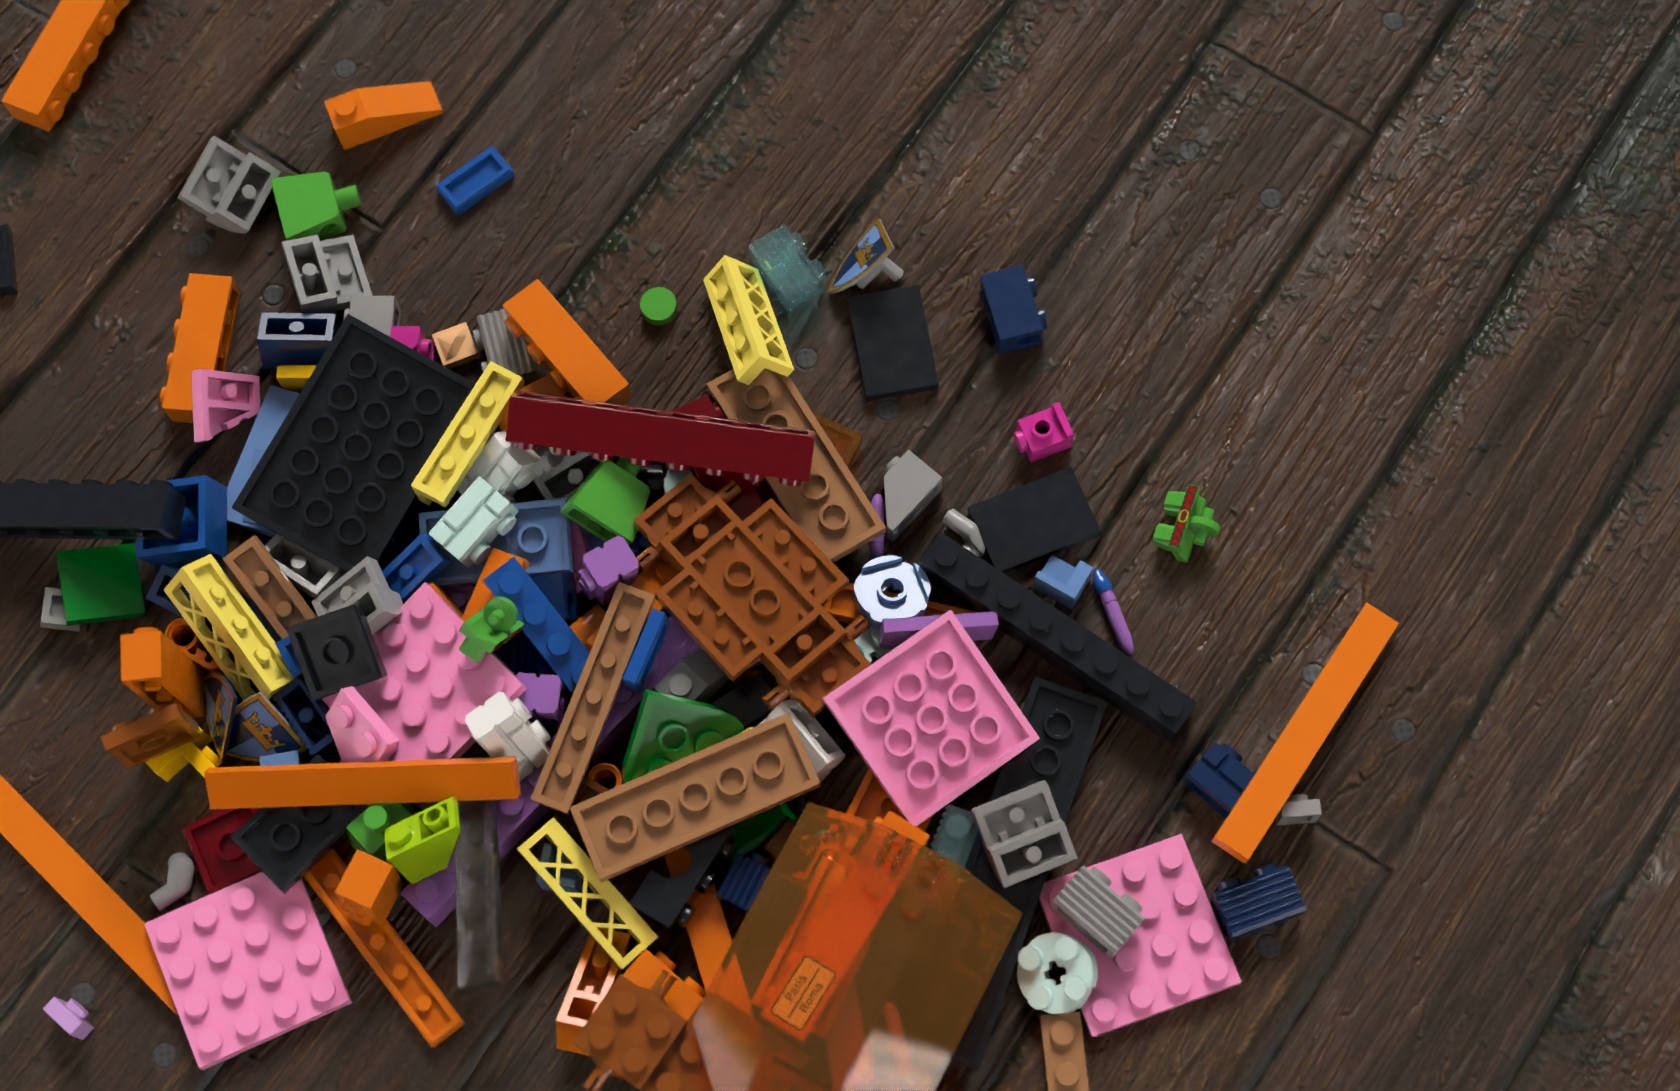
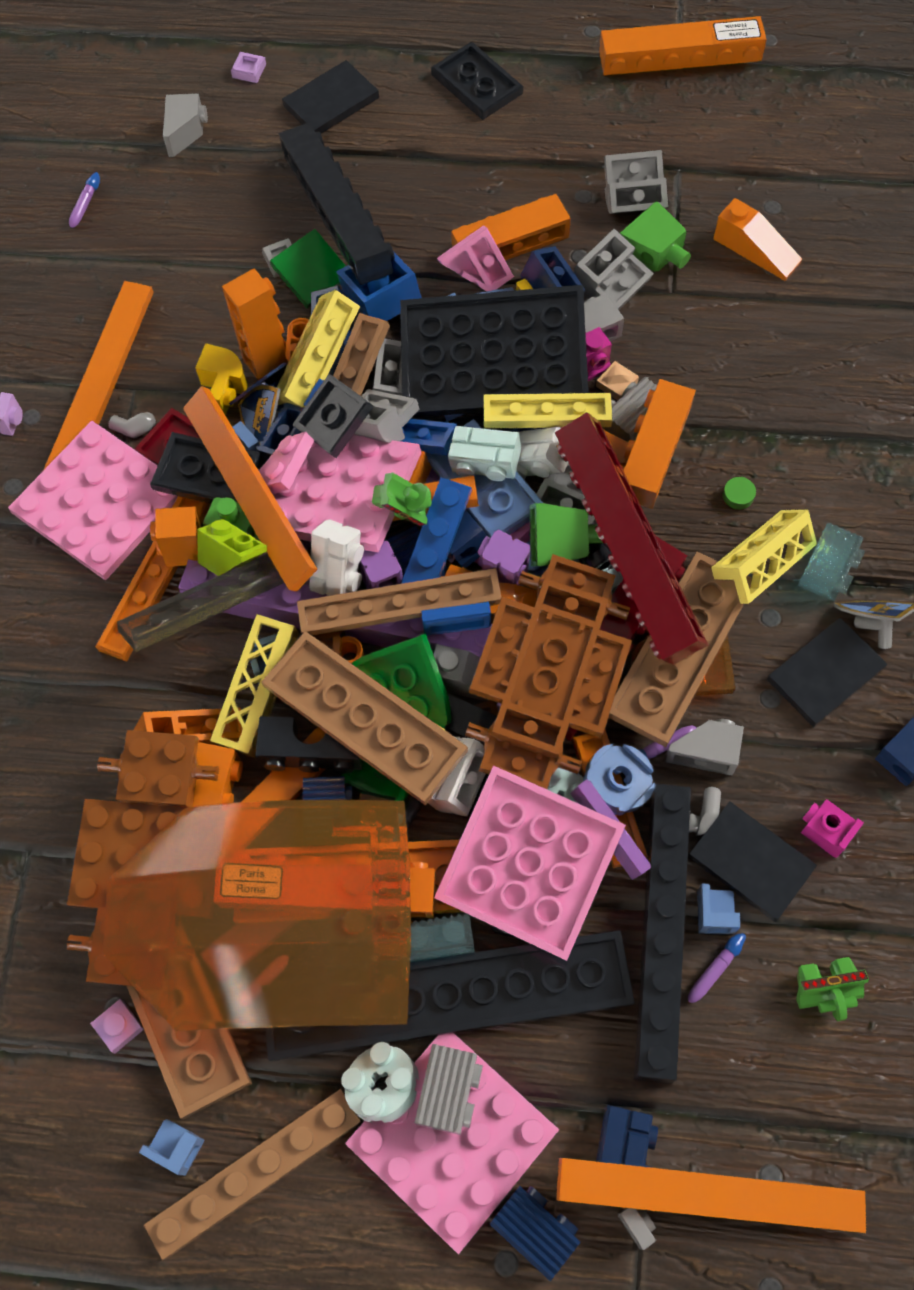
camera: 60 degrees right, 5 degrees down
(151, 736) = (211, 341): dark orange plate -> none
(475, 180) = (748, 326): blue tile -> none
(1023, 834) = (477, 990): light grey brick -> none

